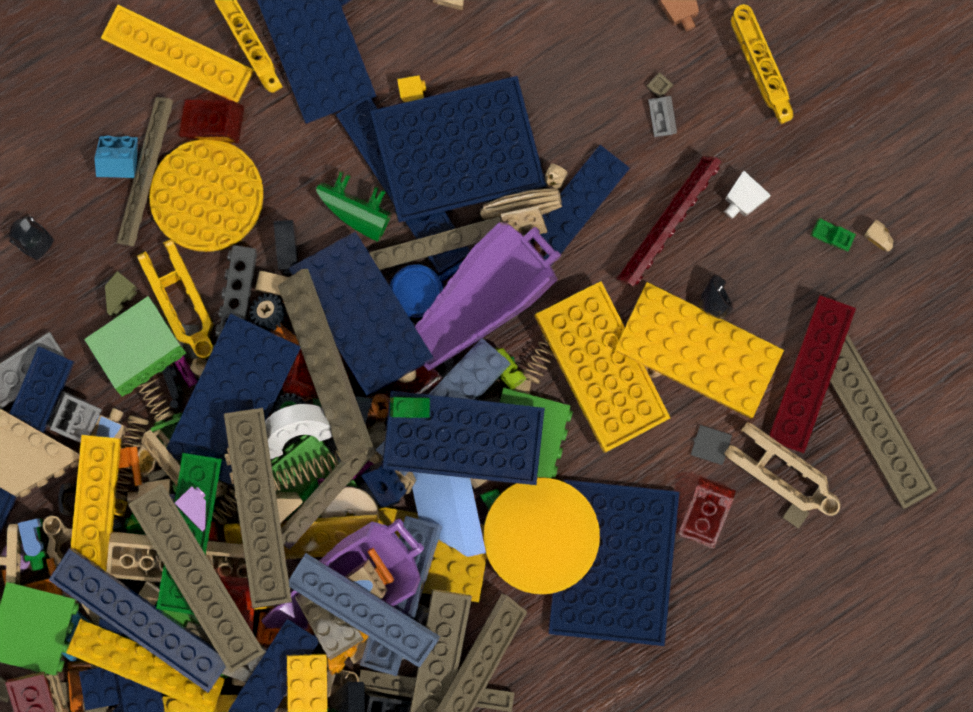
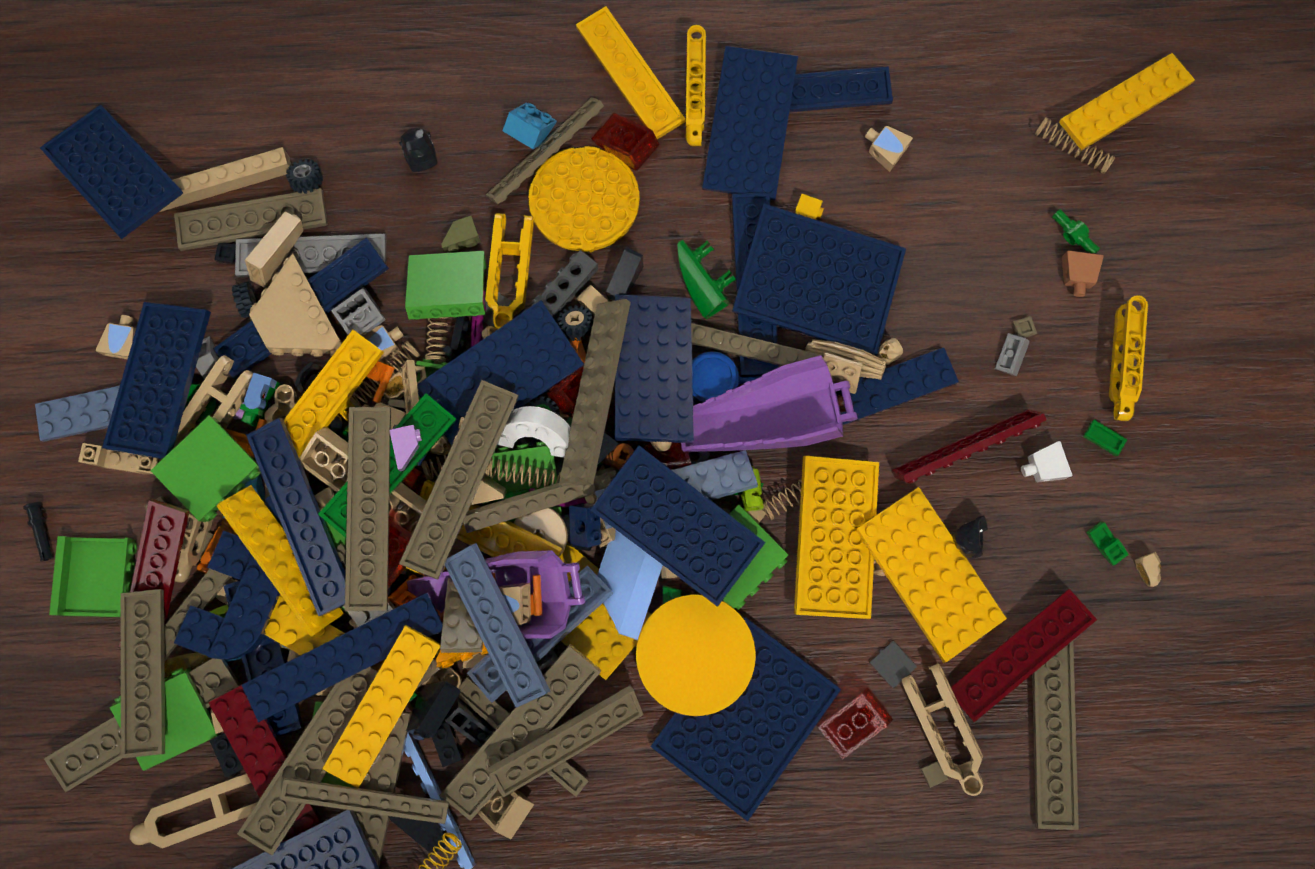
camera: 30 degrees right, 5 degrees down
(409, 407) = (646, 469): green slope -> none
(781, 143) = (1105, 438): none -> green tile

